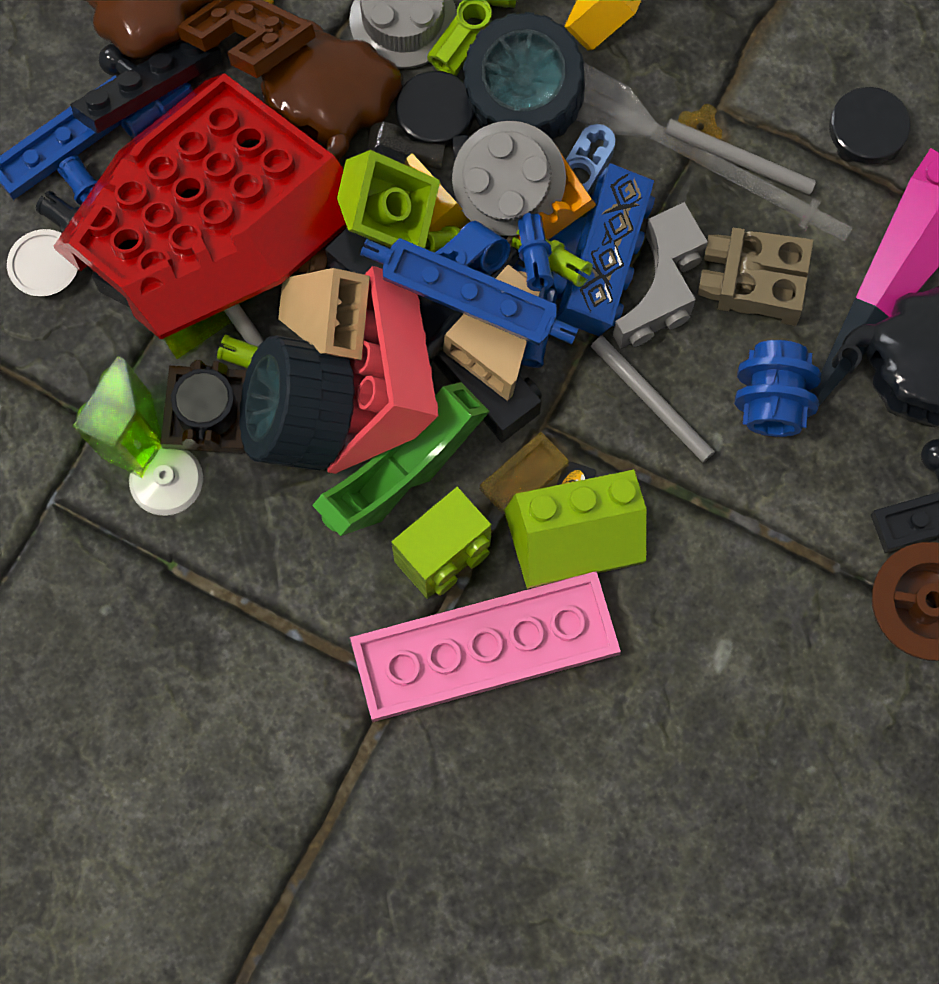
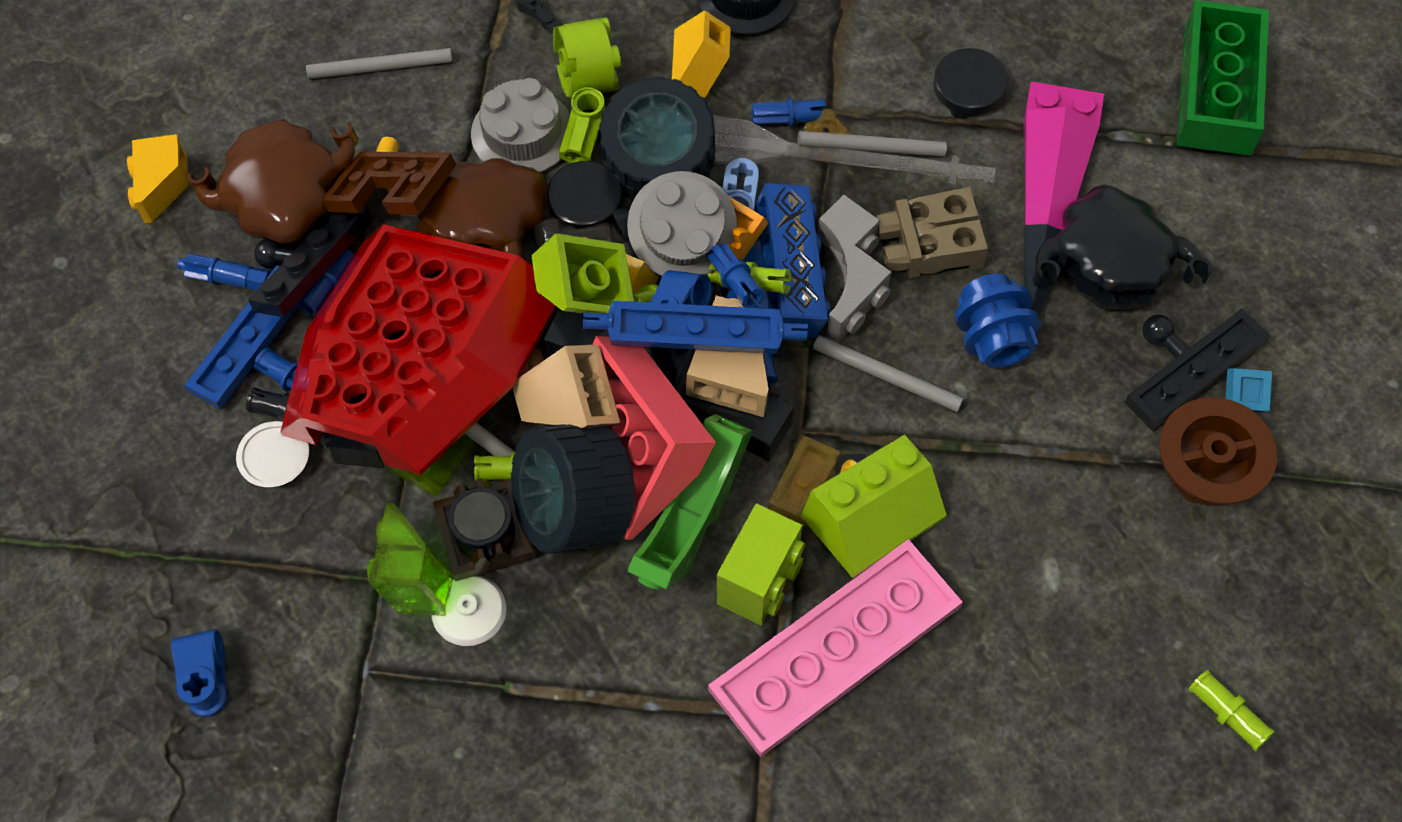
camera: 20 degrees left, 10 degrees down
(60, 60) = (222, 271): none -> blue piece
(670, 92) = (787, 112): none -> blue axle
(829, 852) = (1231, 710): none -> lime pin

